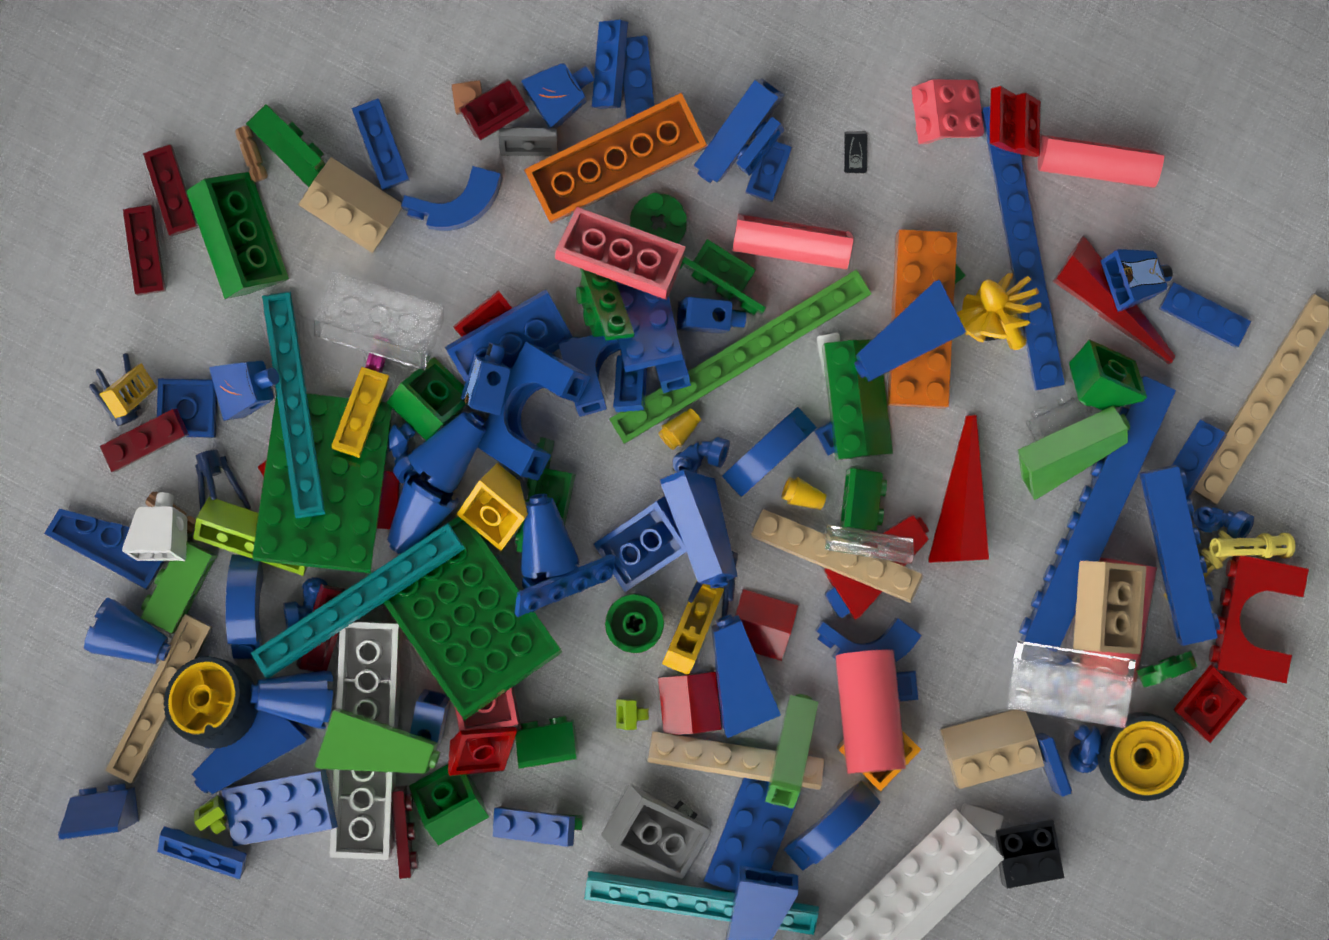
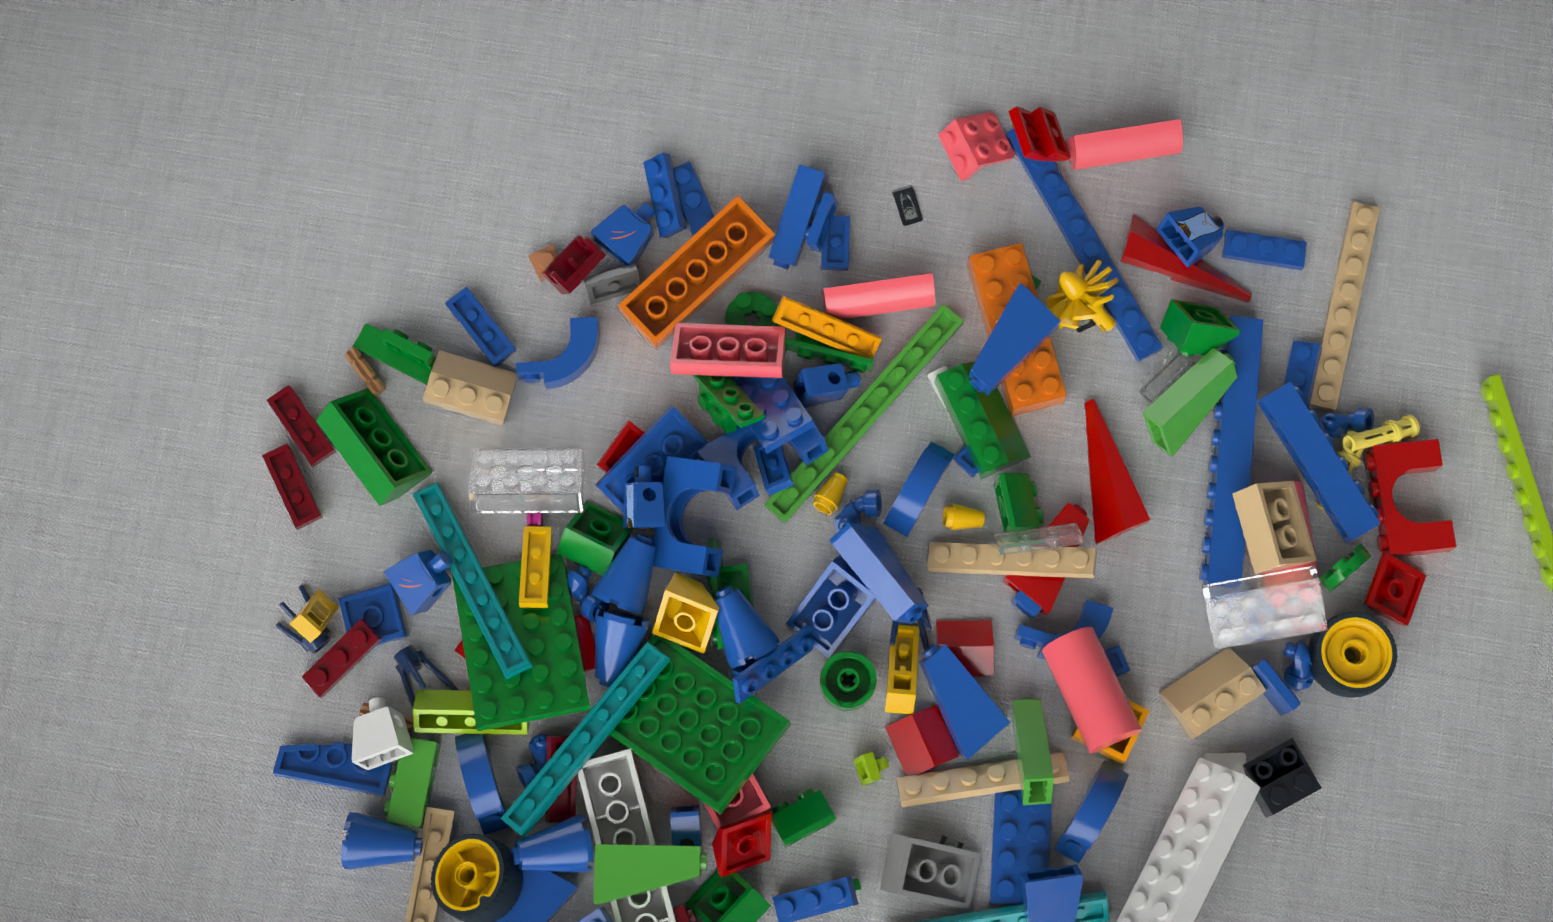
camera: 20 degrees left, 10 degrees down
(728, 260) = (826, 328): none -> light orange tile

